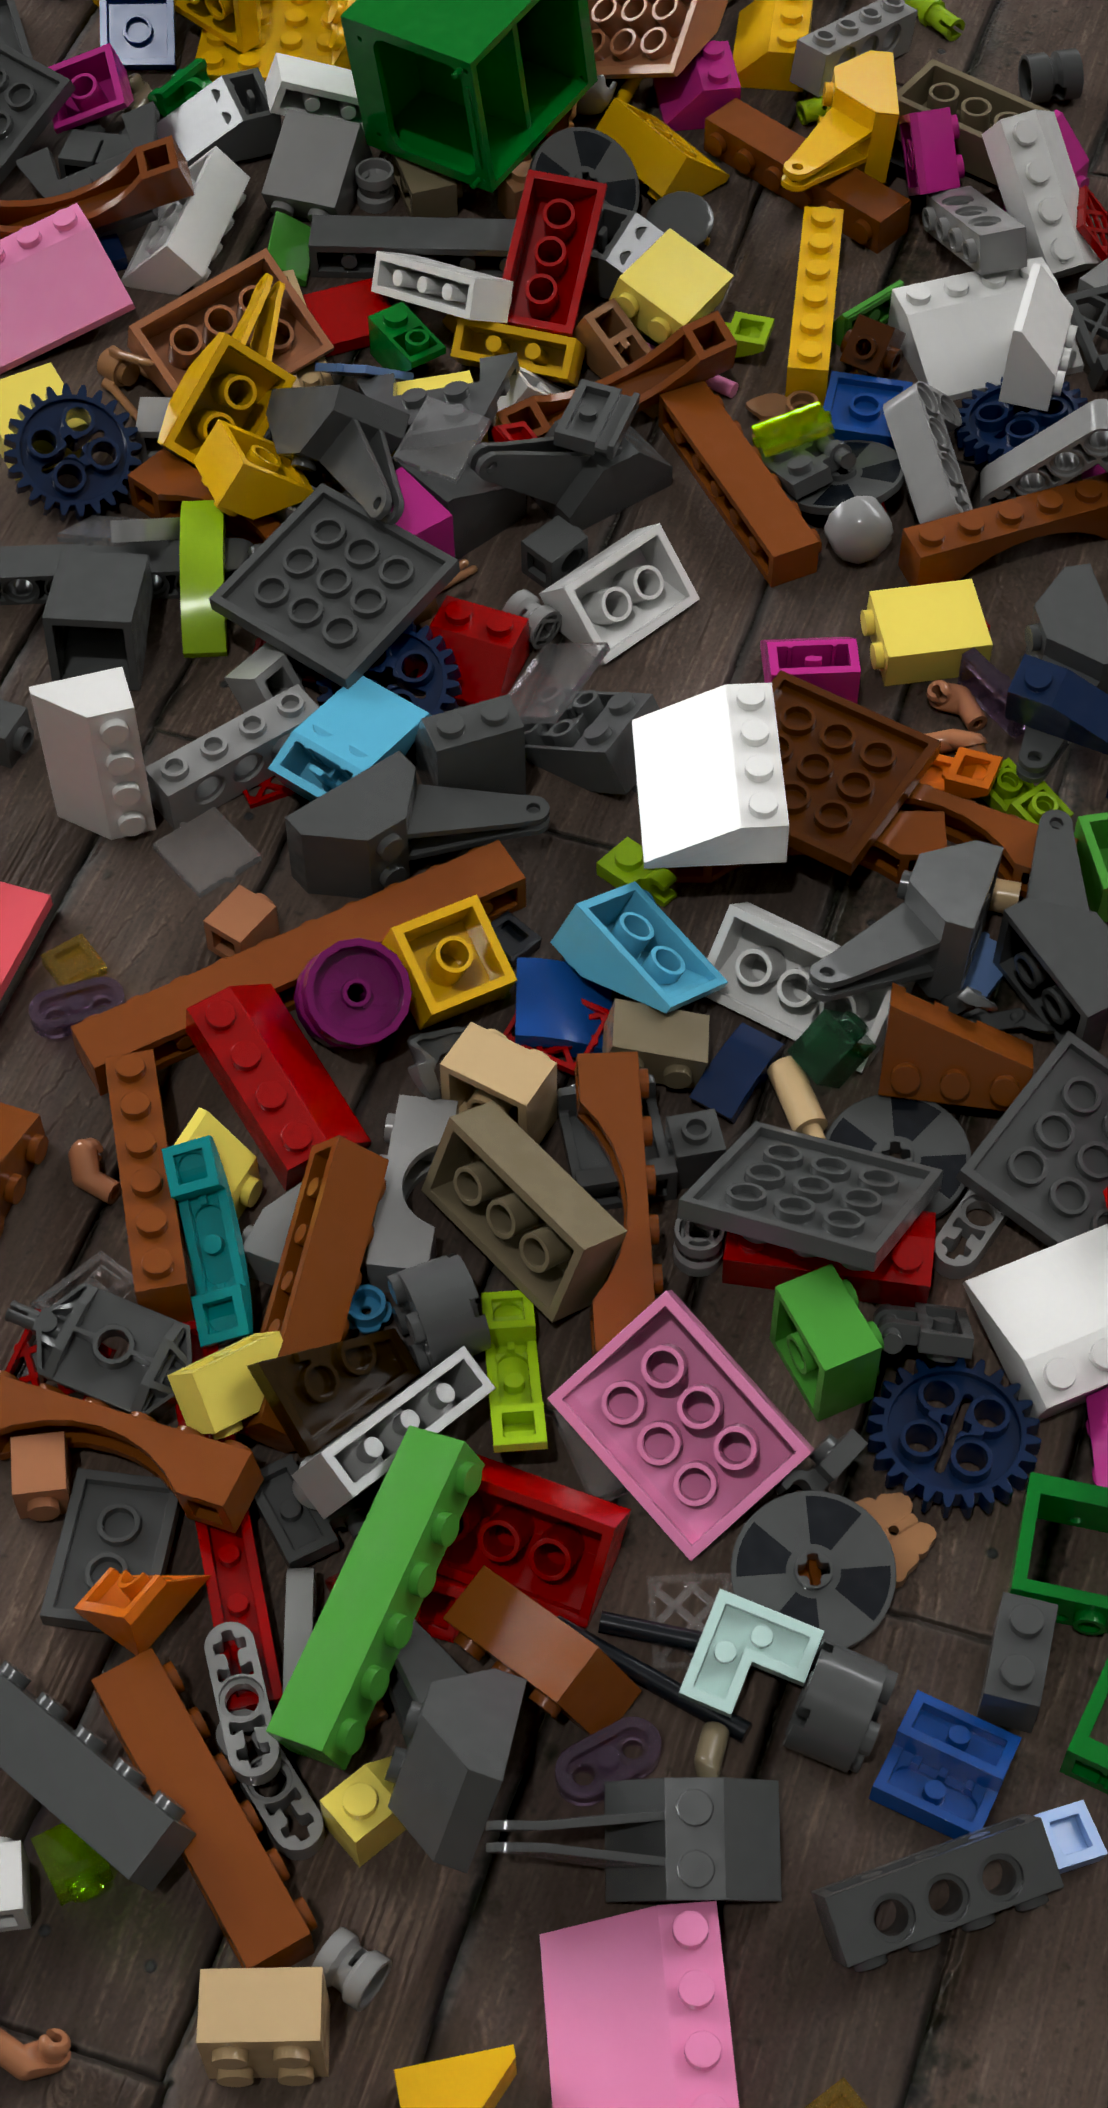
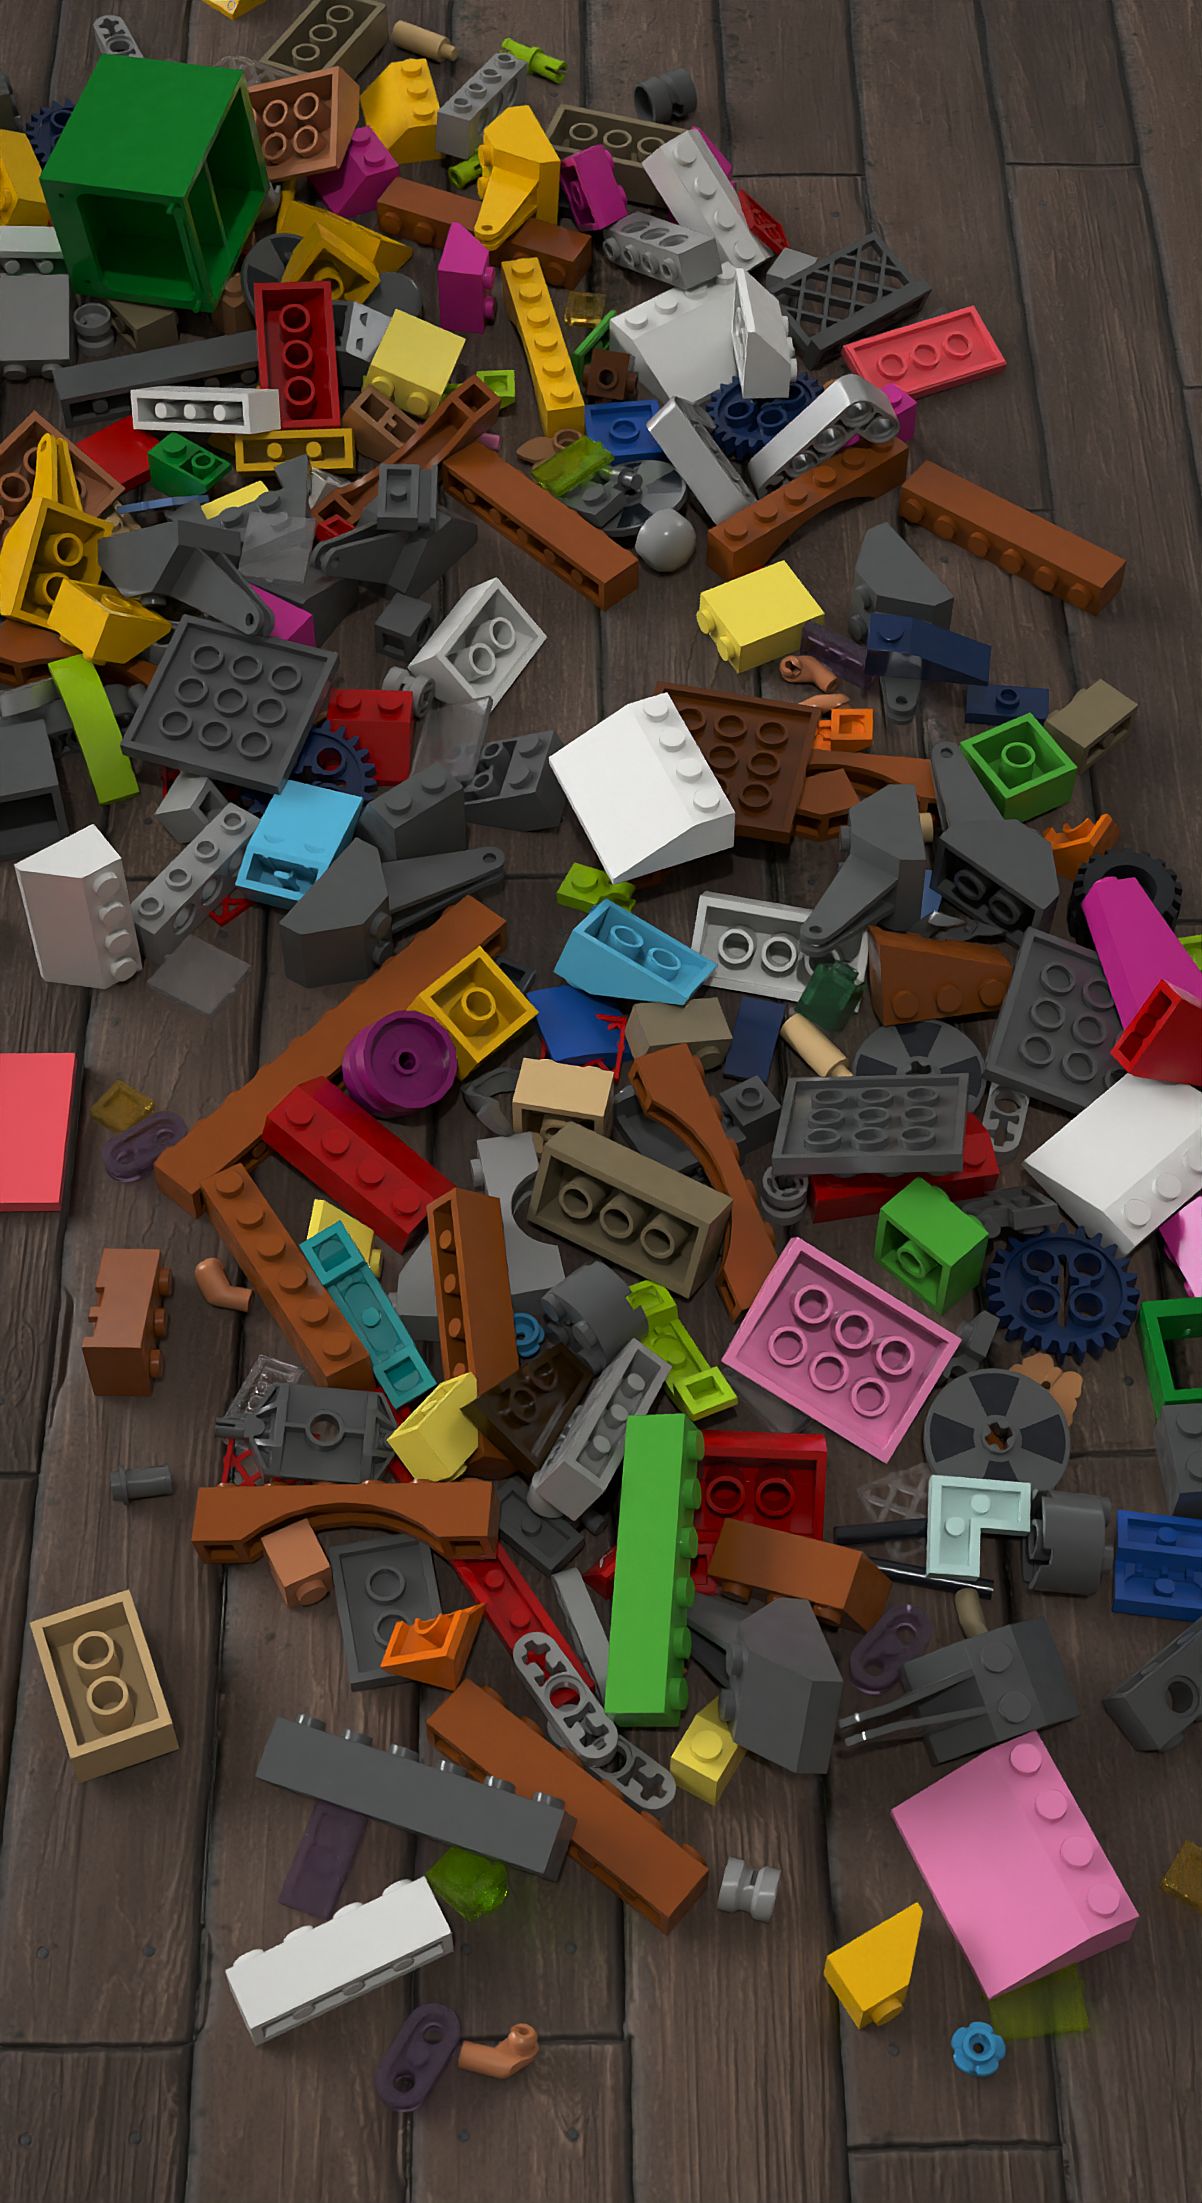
camera: 20 degrees left, 0 degrees up
(240, 922) = (264, 1031): nougat brick -> none
(264, 2025) = (703, 1957): tan brick -> none
(290, 246) = (38, 396): bright green slope -> none
(630, 171) = (328, 258): none -> yellow slope
(758, 219) = (465, 283): none -> dark pink slope
(823, 661) = (686, 662): dark pink slope -> none
(878, 273) = (584, 309): none -> clear yellow tile
(1022, 798) = (900, 741): lime slope -> none

